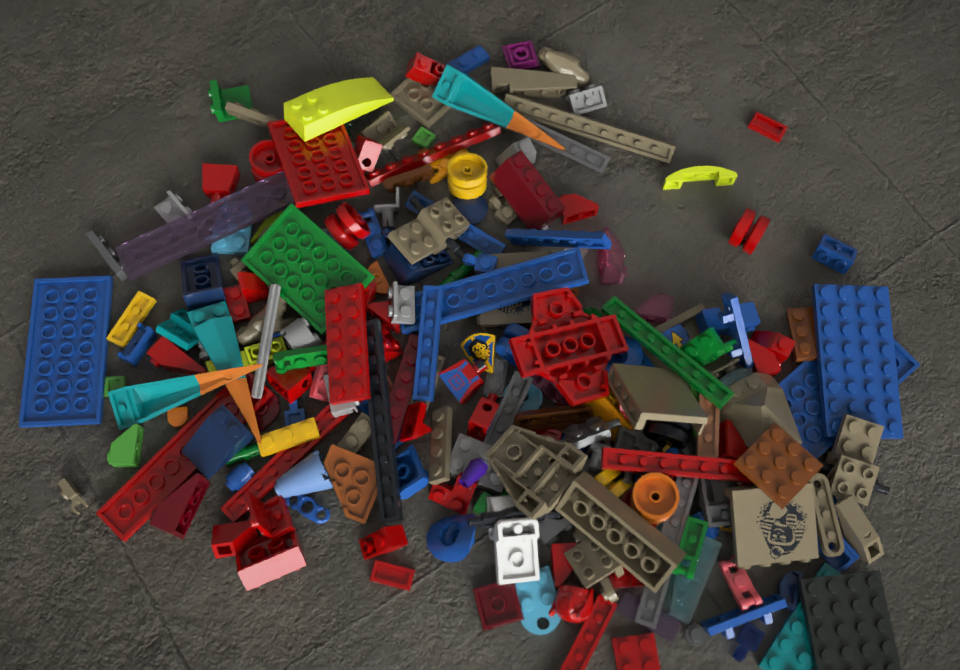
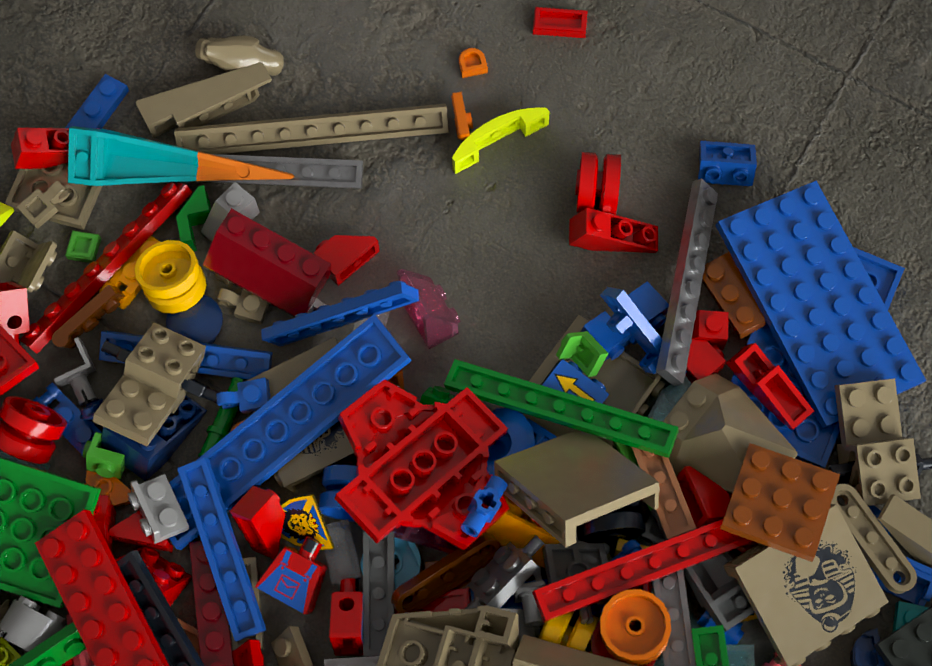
camera: 20 degrees left, 0 degrees up
(381, 263) = (103, 461): none -> bright green bracket
(409, 103) = (40, 206): none -> dark tan plate
(458, 337) = (260, 520): none -> red slope
(496, 146) = (192, 214): none -> green slope
(527, 62) = (182, 74): magenta piece -> none
(588, 100) = (293, 91): light grey bracket -> none
(595, 385) = (477, 514): none -> blue axle
(656, 309) = (520, 350): clear pink slope -> none
(681, 160) = (462, 120): none -> orange plate
(694, 323) = (583, 351): none -> bright green bracket
(702, 128) = (472, 63): none -> orange tile
(707, 347) = (613, 378): green bracket -> none
(743, 264) = (612, 233): none -> red slope
(777, 313) = (687, 283): none -> flat silver plate
(802, 396) = (770, 385): none -> red slope

